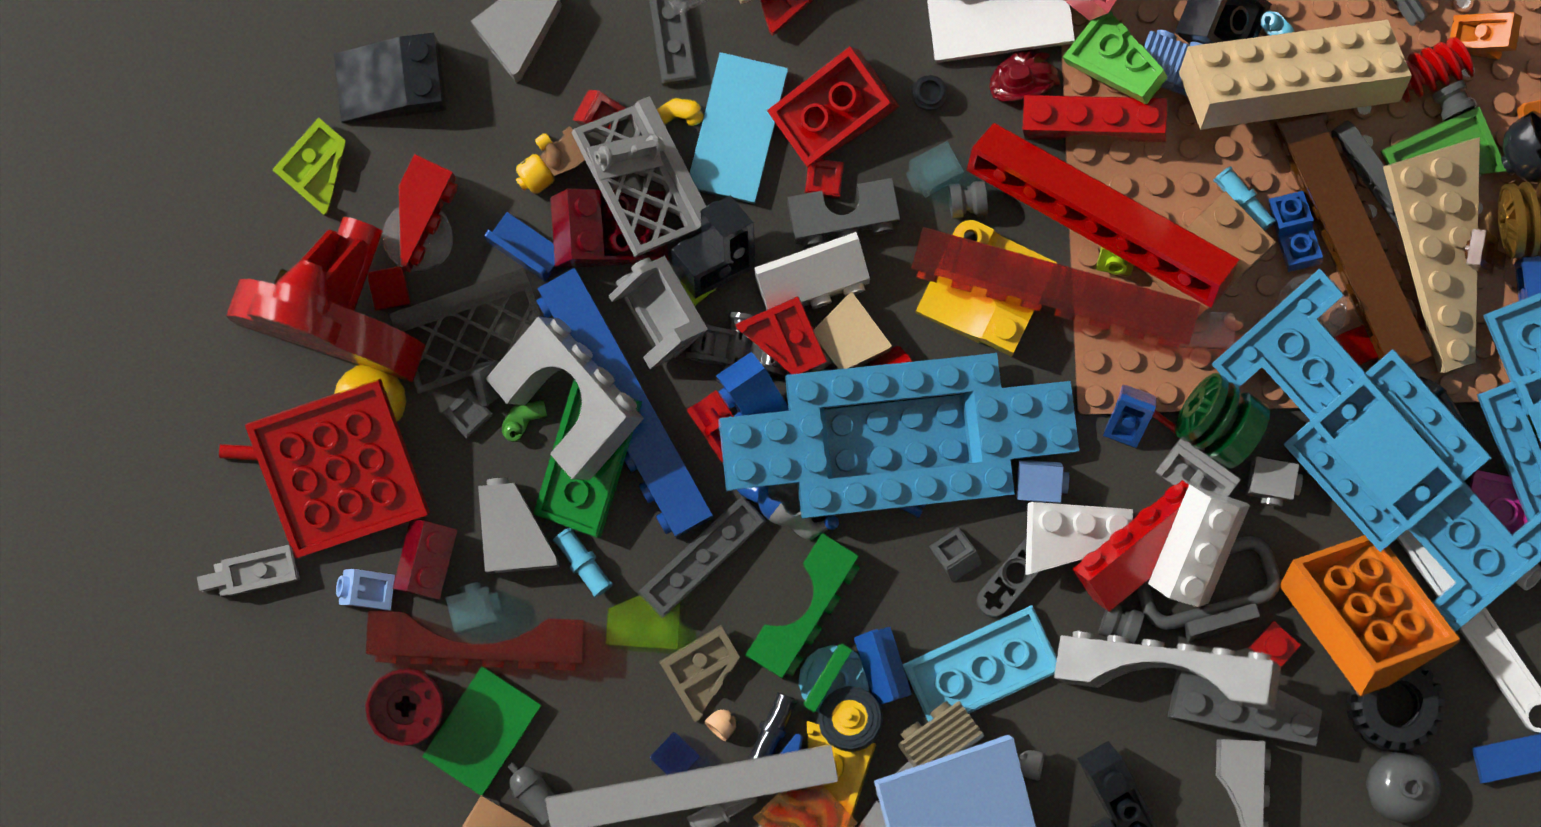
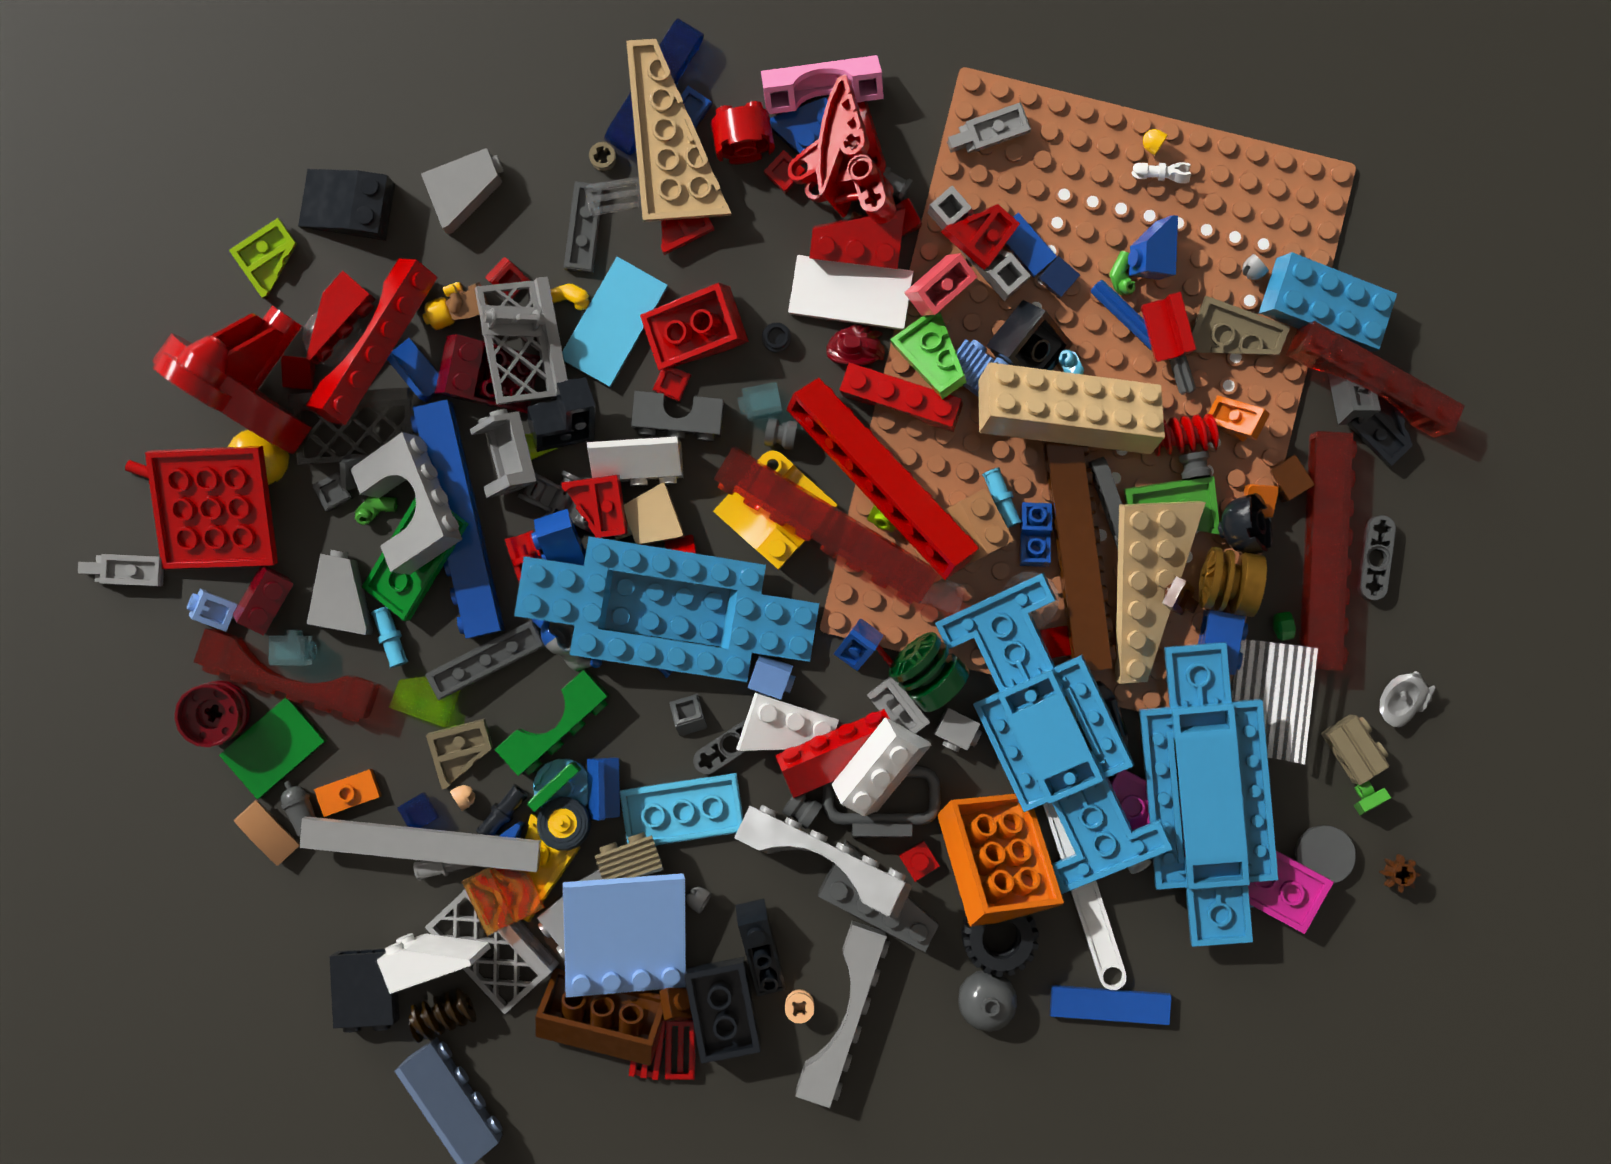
camera: 15 degrees right, 5 degrees up
(457, 284) = (347, 384): none -> red arch
(585, 758) = (348, 792): none -> orange plate

